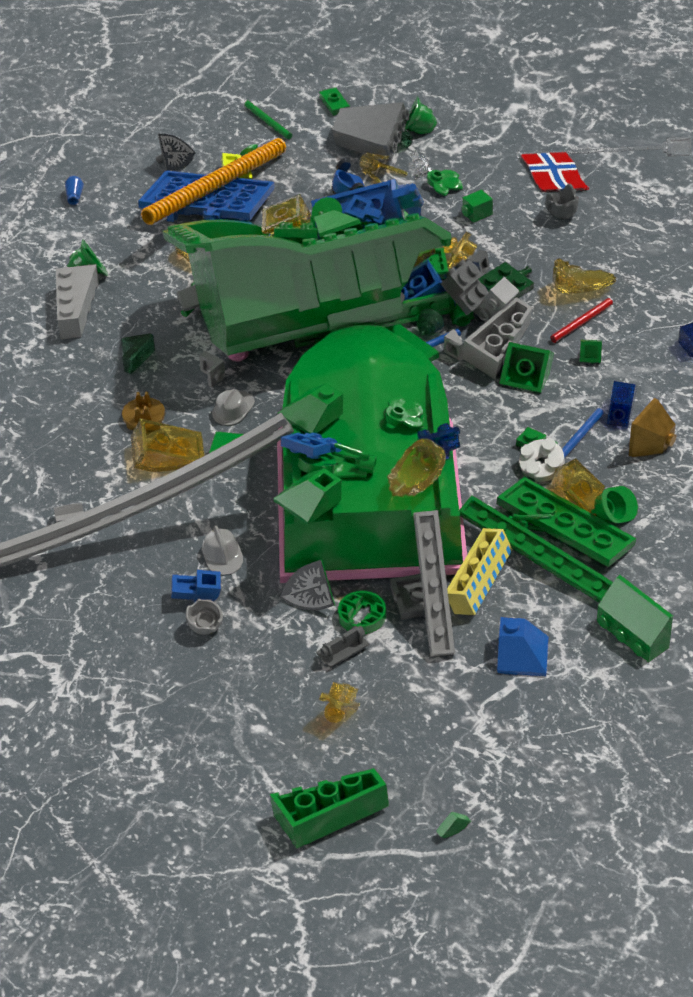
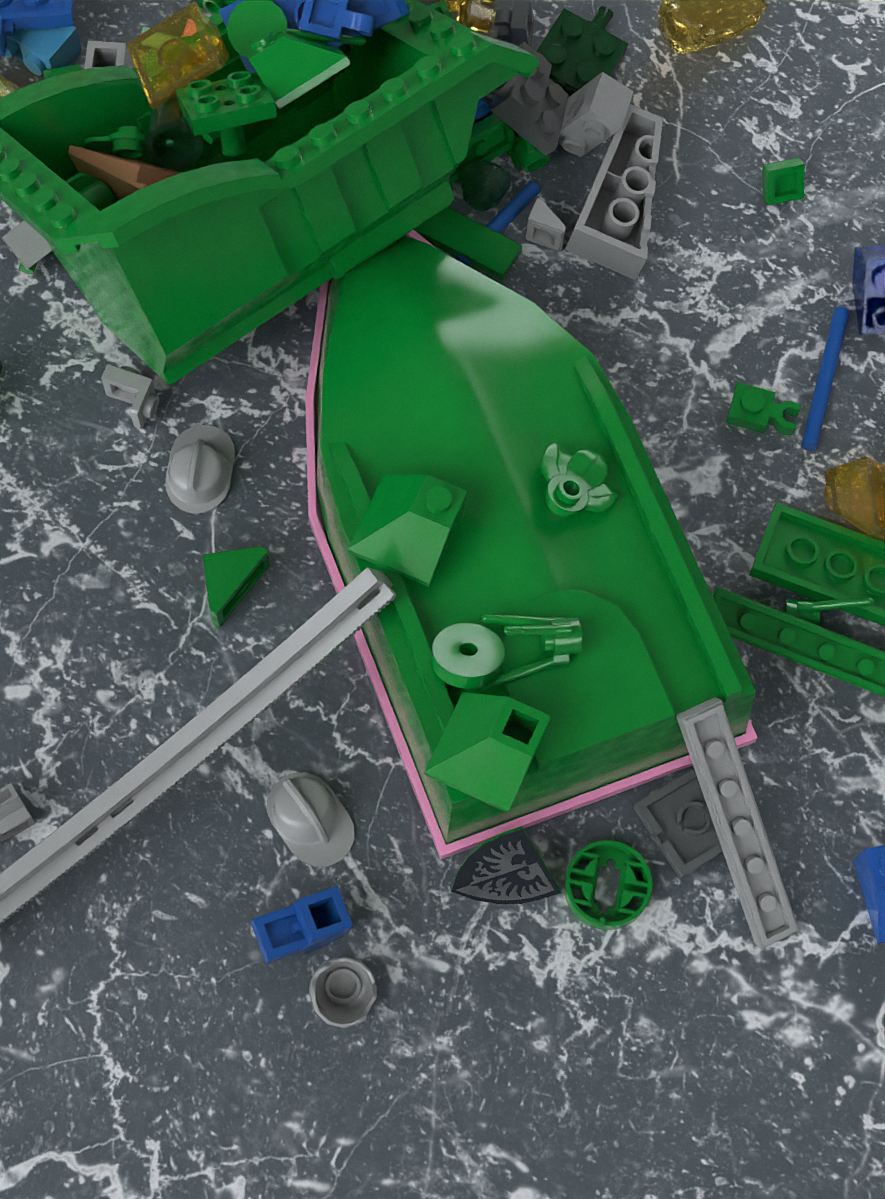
camera: 25 degrees left, 25 degrees up
(144, 408) = (47, 548): pearl gold plate -> none
(164, 446) = (119, 607): clear yellow slope -> none
(310, 444) = (446, 622): blue plate -> none
(341, 699) = (655, 1111): clear yellow hips -> none
(343, 647) = (605, 976): dark grey hinge -> none
(417, 468) = (662, 633): clear yellow hair -> none
(444, 437) = (686, 535): clear blue hips -> none
(478, 571) = (782, 743): light yellow brick -> none
(526, 367) = (689, 247): green slope -> none
(541, 448) = (784, 476): white plate -> none
(581, 320) = (736, 108): red bar -> none

